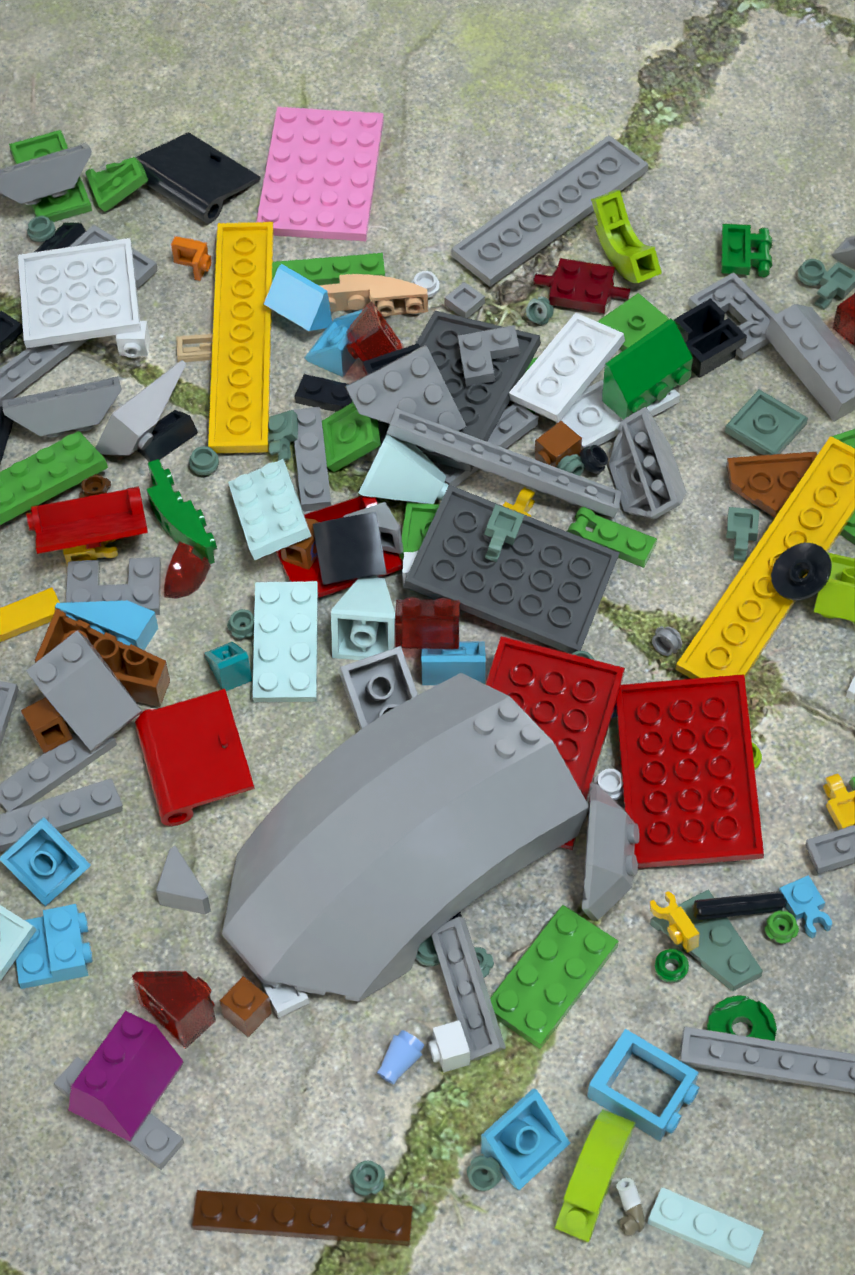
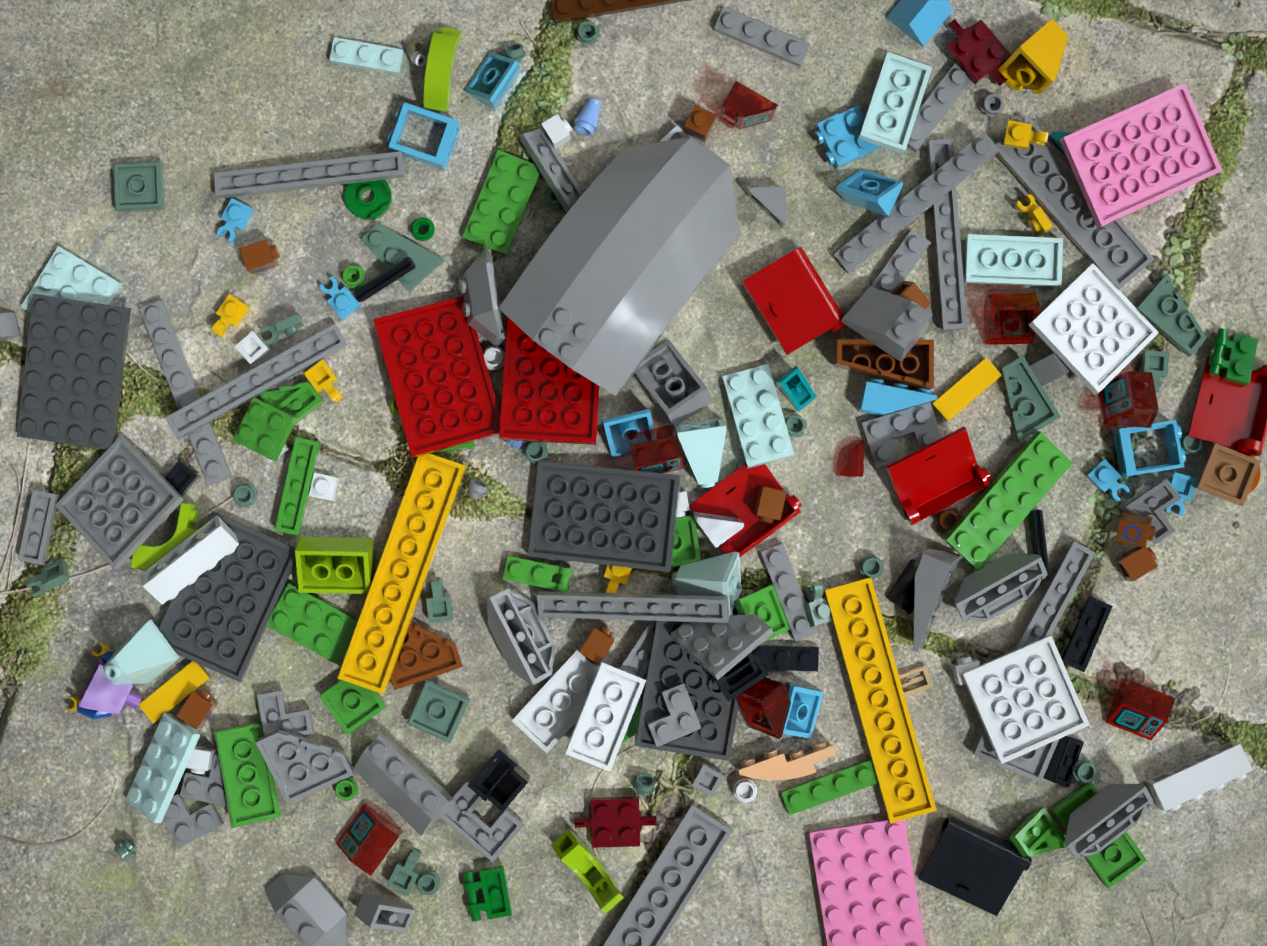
camera: 165 degrees right, 30 degrees up
(125, 1077) = (761, 50): magenta slope -> none
(176, 516) = (868, 502): green slope -> none
(192, 254) = (950, 775): orange bracket -> none
(269, 509) = (803, 523): light aqua plate -> none
(299, 300) = (842, 731): medium azure slope -> none
(349, 548) = (730, 496): black slope -> none
(502, 527) = (617, 541): sand green plate -> none
(572, 464) = (583, 628): sand green plate -> none
(594, 458) = (567, 642): black plate -> none
(634, 319) = (561, 789): bright green plate -> none
(647, 370) = (537, 722): green slope -> none
(680, 926) = (420, 248): yellow plate -> none
(797, 562) = (394, 556): black dish -> none

